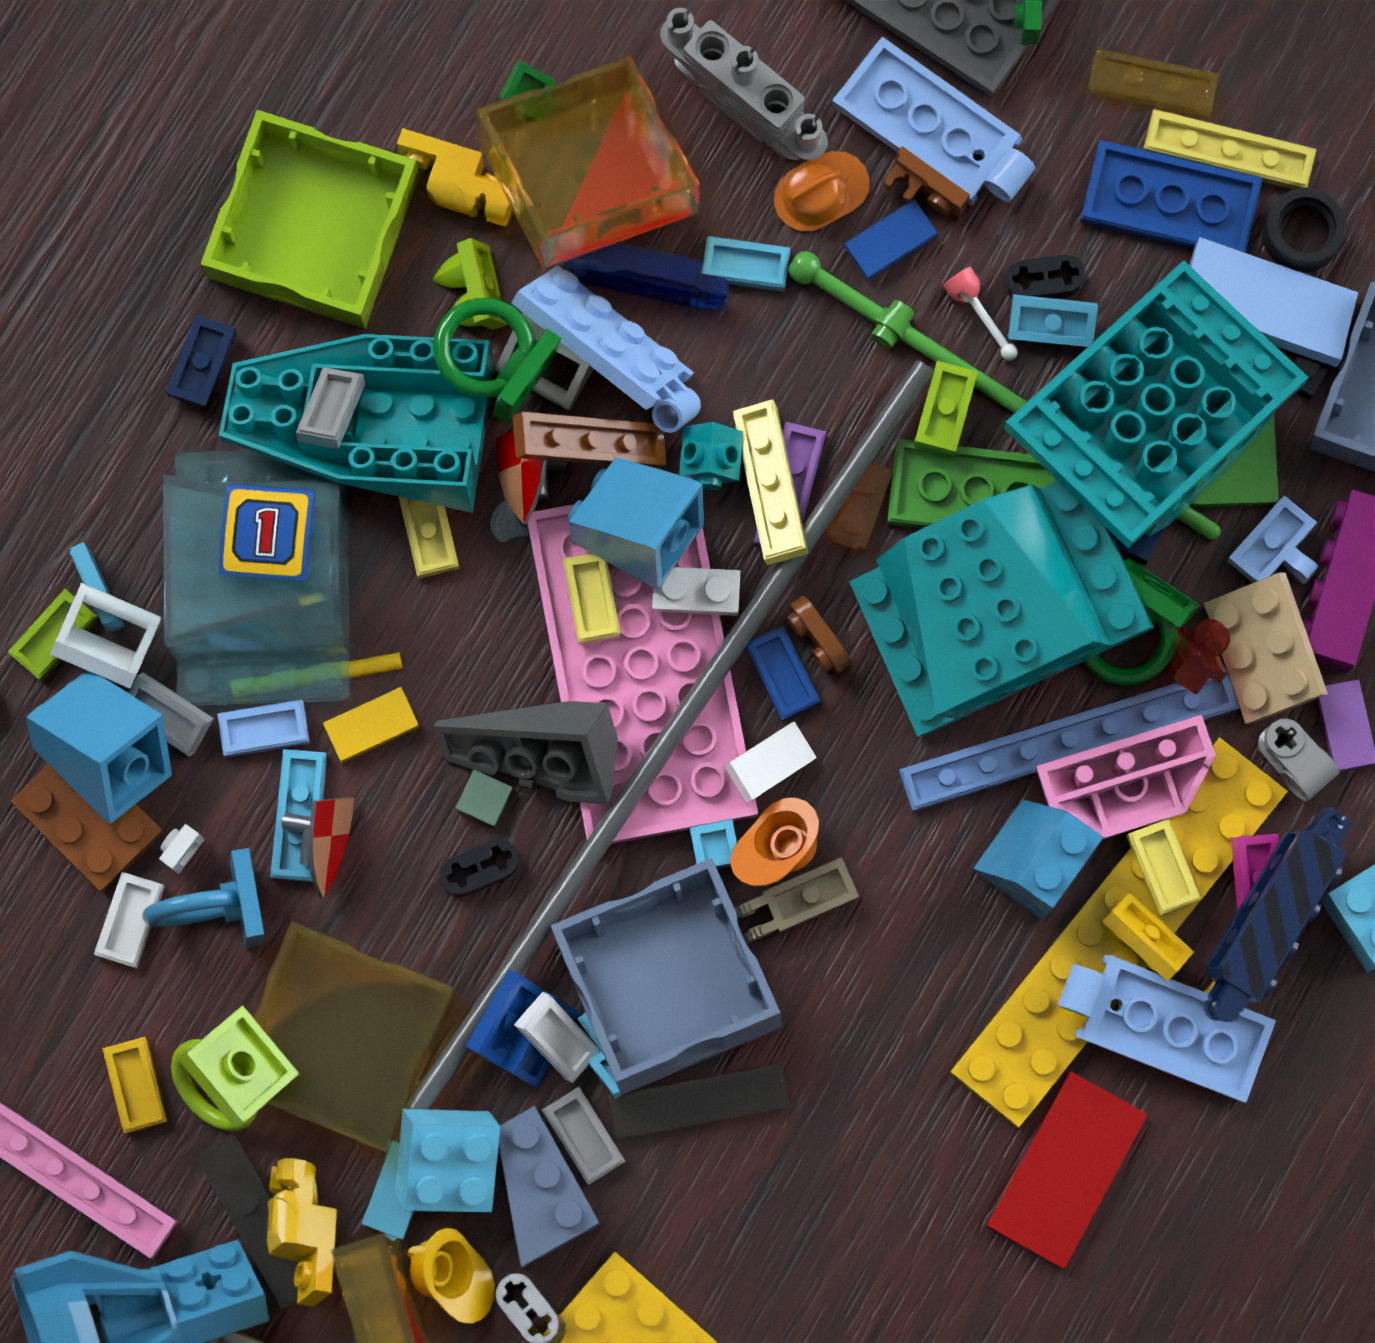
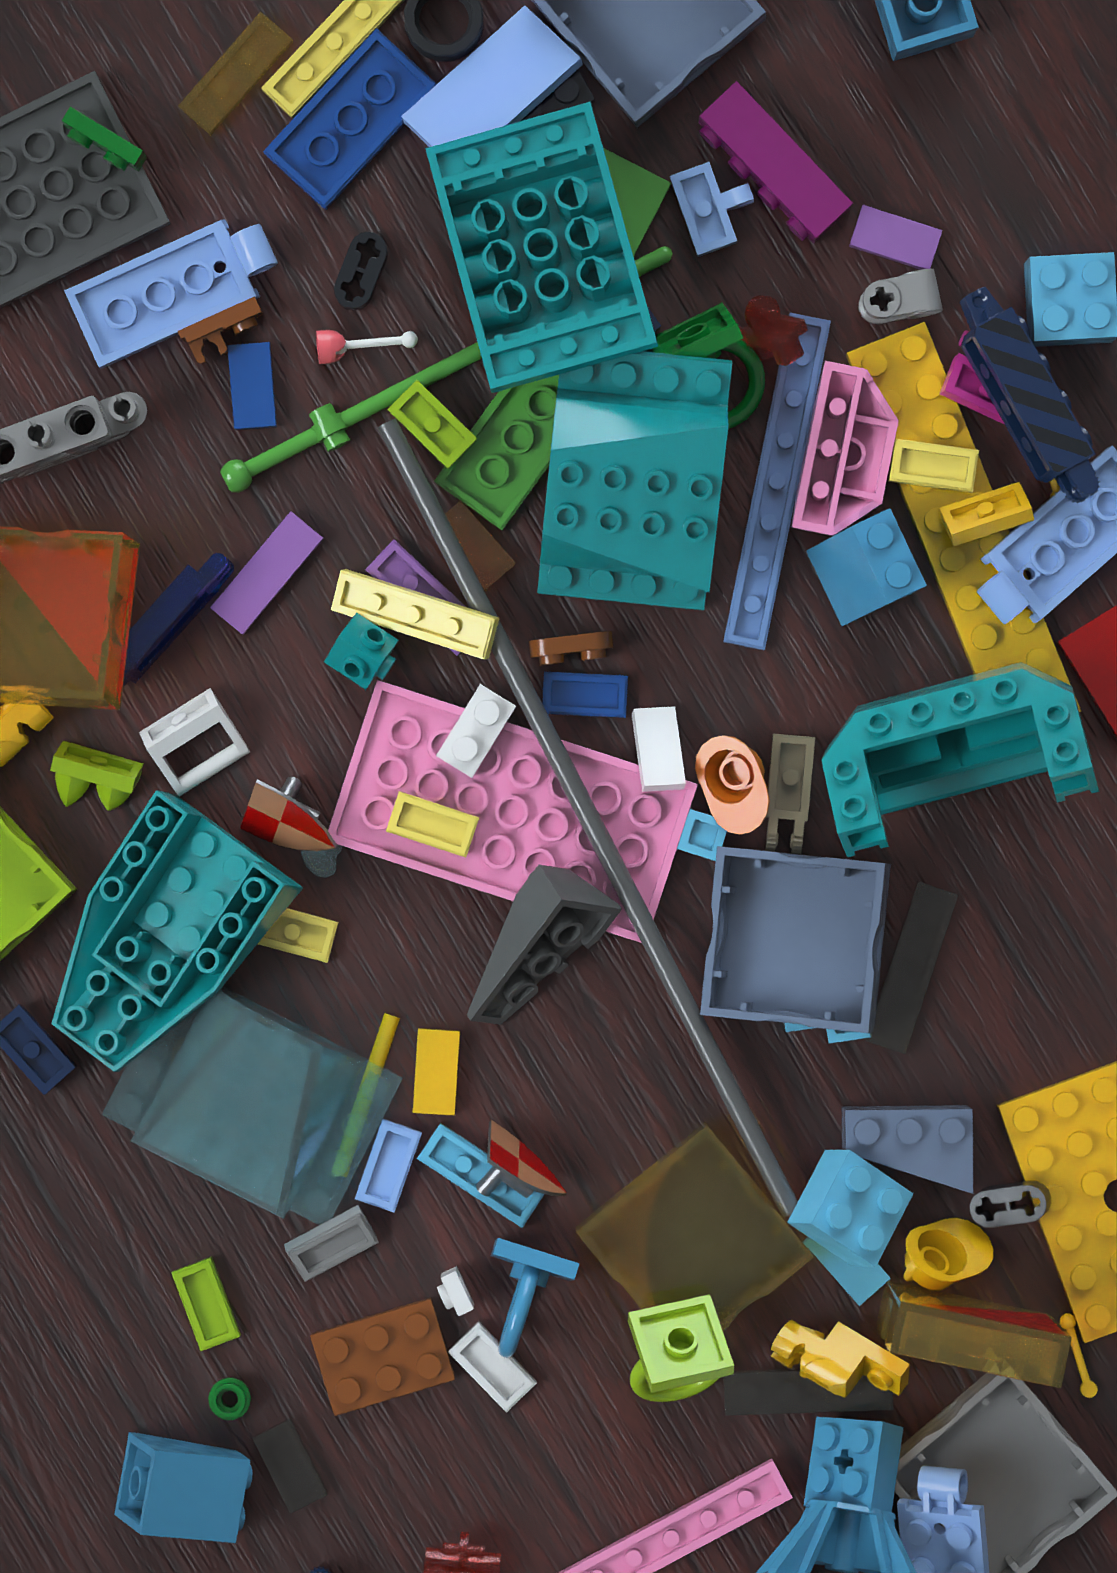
camera: 60 degrees left, 10 degrees up
(92, 577) = (186, 1245): medium azure tile -> none
(97, 653) = (249, 1273): white tile -> none
(102, 743) = (330, 1313): dark azure slope -> none
(135, 1085) = (636, 1434): yellow tile -> none
(267, 532) = (235, 1079): slope -> none
(330, 408) = (144, 962): light grey tile -> none
(474, 858) = (601, 1043): black beam -> none
(484, 798) = (553, 1009): sand green tile -> none
(501, 1041) = (771, 1084): blue slope -> none
(520, 371) = (202, 780): green tile -> none
(557, 1037) = (795, 1059): white tile -> none
(583, 1135) = (886, 1079): light grey tile -> none
(587, 440) = (296, 752): plate -> none
(611, 346) = (217, 685): light blue hinge -> none
(638, 519) = (389, 749): dark azure slope -> none
(734, 340) = (267, 573): none -> medium lavender tile
(747, 263) = (203, 524): medium azure tile -> none
(821, 191) = (175, 421): orange piece -> none
(918, 1017) = (953, 743): none -> teal wedge
(1052, 320) = (404, 286): medium azure plate -> none
(1267, 649) = (796, 267): tan plate -> none

